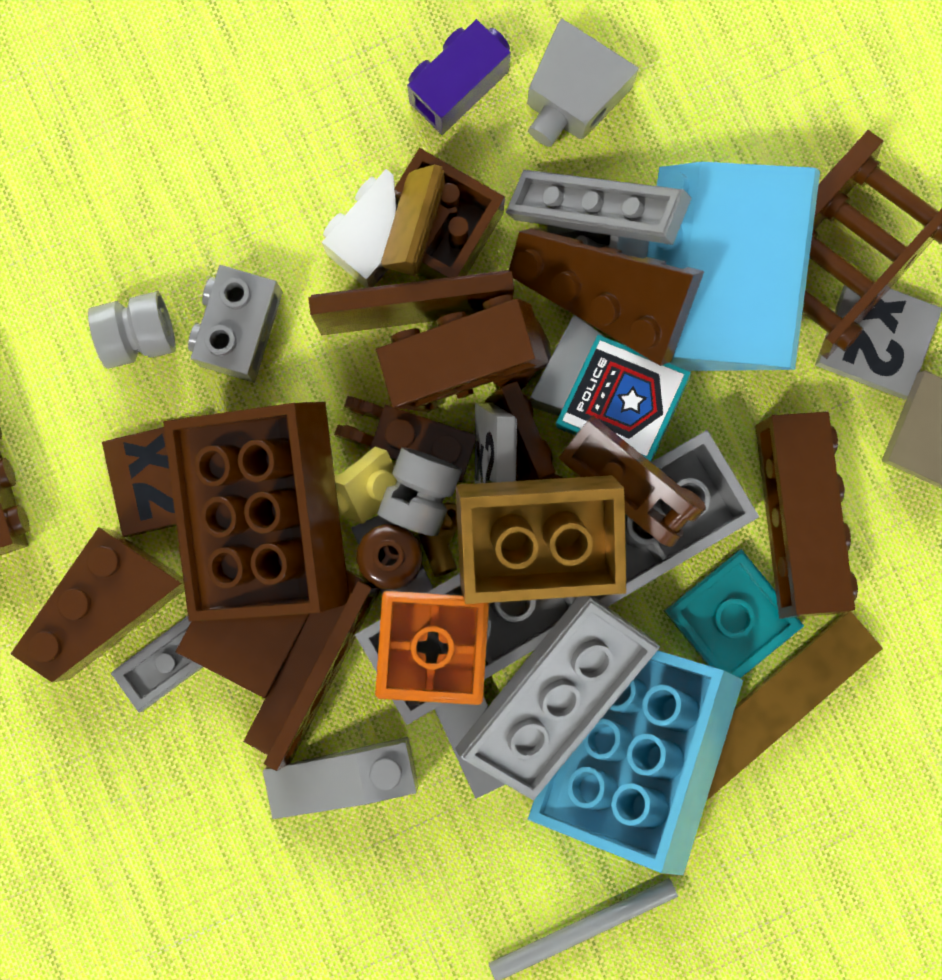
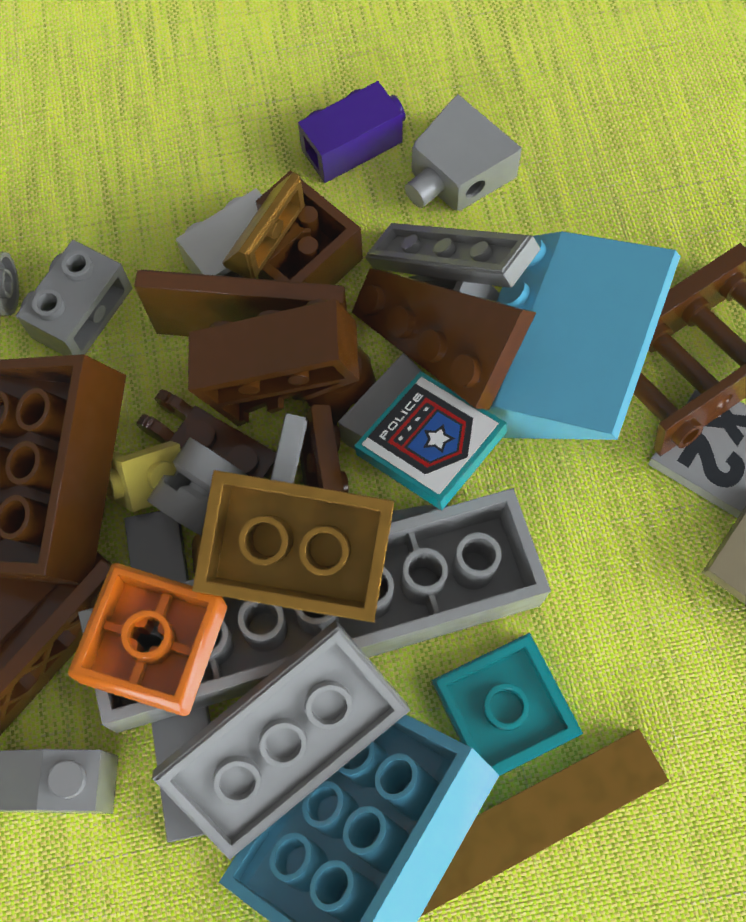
camera: 20 degrees right, 15 degrees down
(408, 561) = (148, 543): reddish brown head -> none
(603, 453) = (418, 516): reddish brown plate -> none
(805, 515) = (606, 612): reddish brown brick -> none

